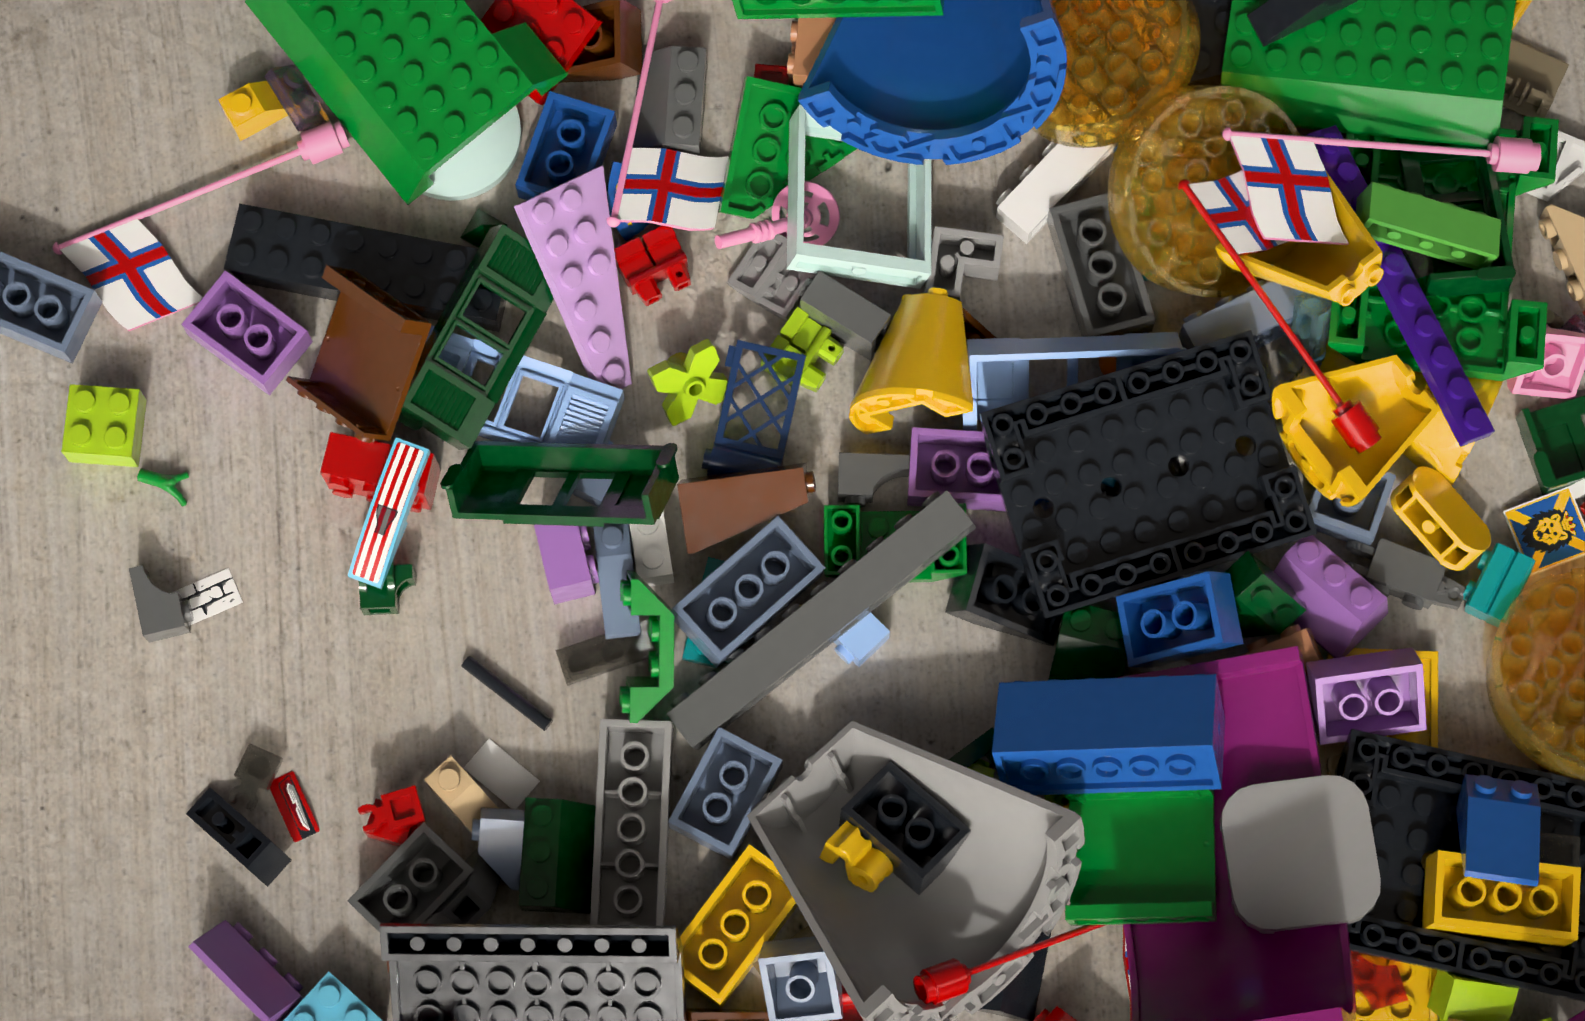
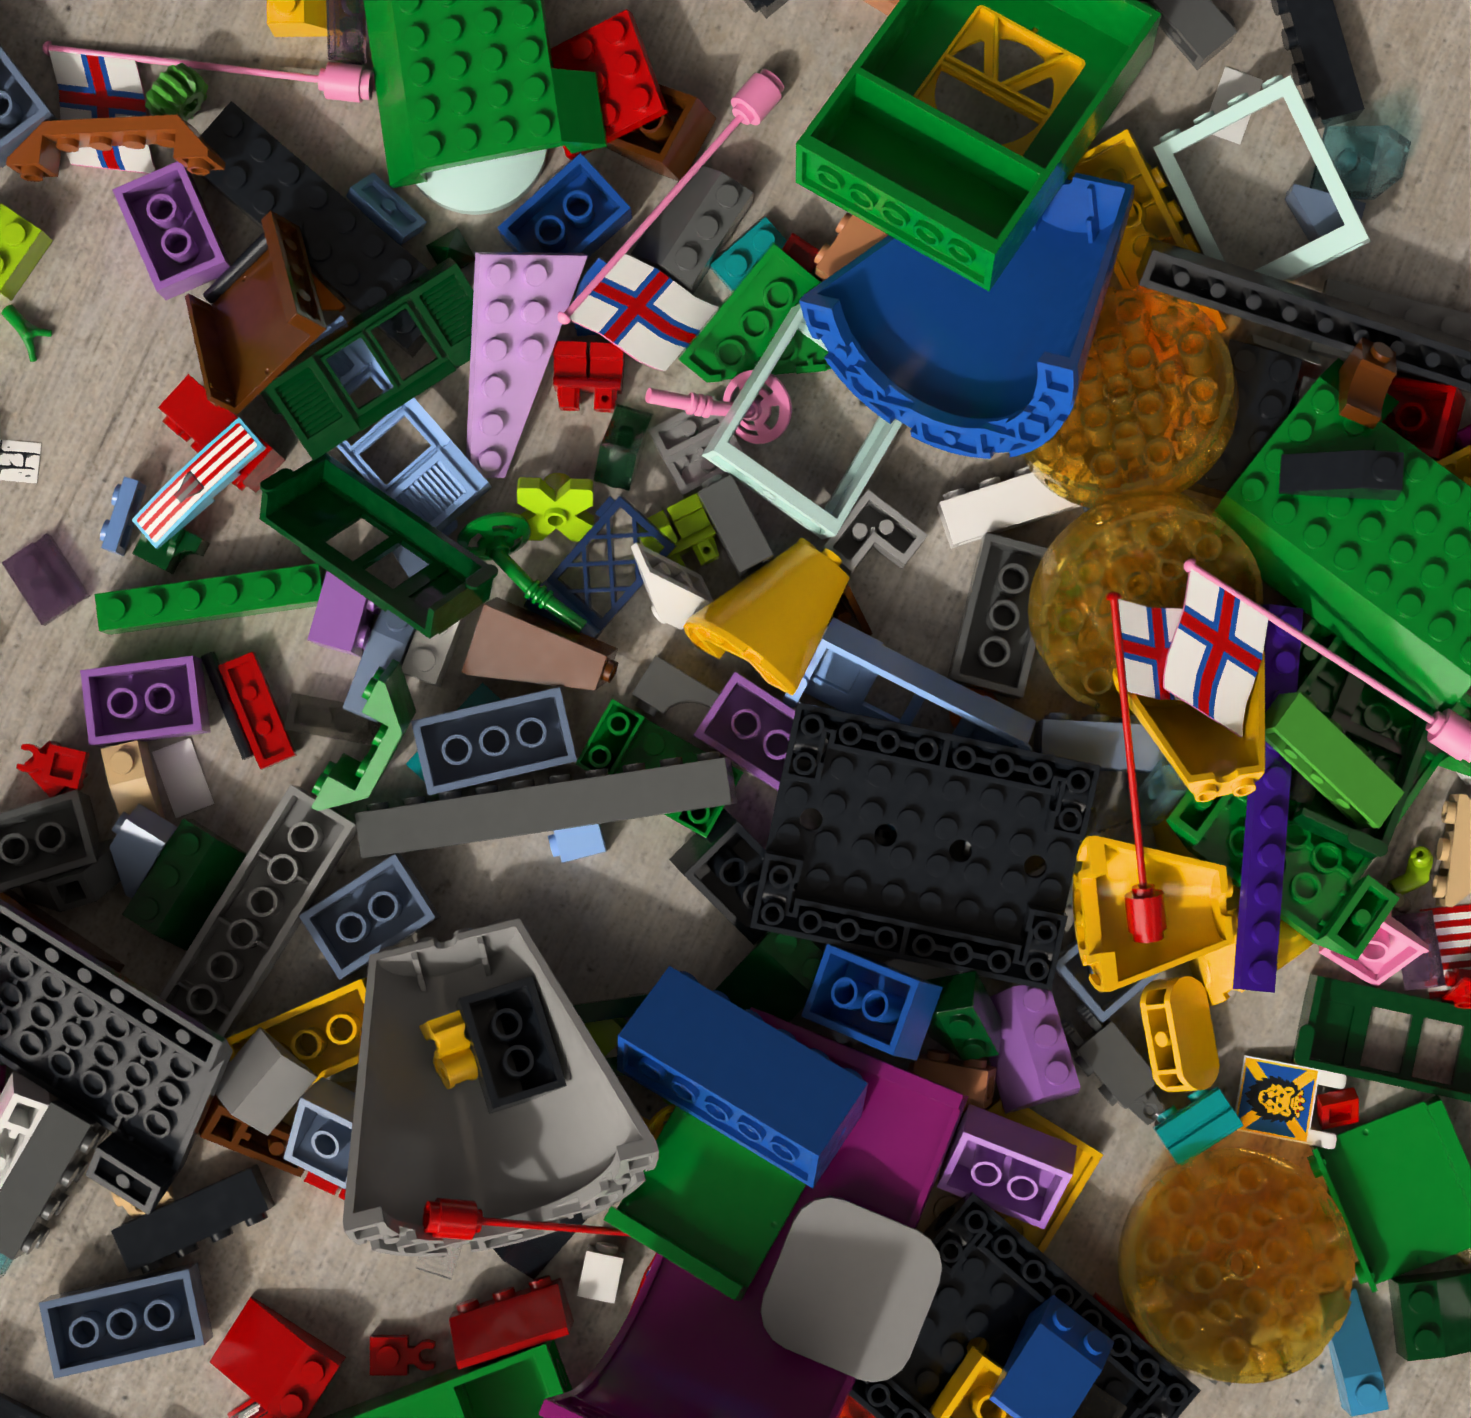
camera: 30 degrees right, 10 degrees up
(100, 333) = (41, 151): none -> dark orange slope
(189, 225) = (177, 92): none -> bright green gear
(295, 675) = (45, 579): none -> clear purple plate
(319, 331) = (237, 269): none -> black bar
(328, 571) = (126, 503): none -> medium blue plate
(412, 222) = (386, 208): none -> medium blue plate
(438, 721) = (145, 701): none -> medium lavender brick
(446, 610) = (209, 599): none -> green brick
(534, 682) = (257, 710): none -> red plate
(660, 435) = (497, 547): none -> green dish
(715, 306) = (622, 447): none -> clear green slope
(719, 970) = (263, 1082): none -> light grey slope
(725, 103) = (745, 252): none -> teal plate
(819, 391) = (671, 587): none -> white slope
(1086, 980) = (601, 1272): none -> white brick
(1549, 286) = (1416, 873): none -> lime arm

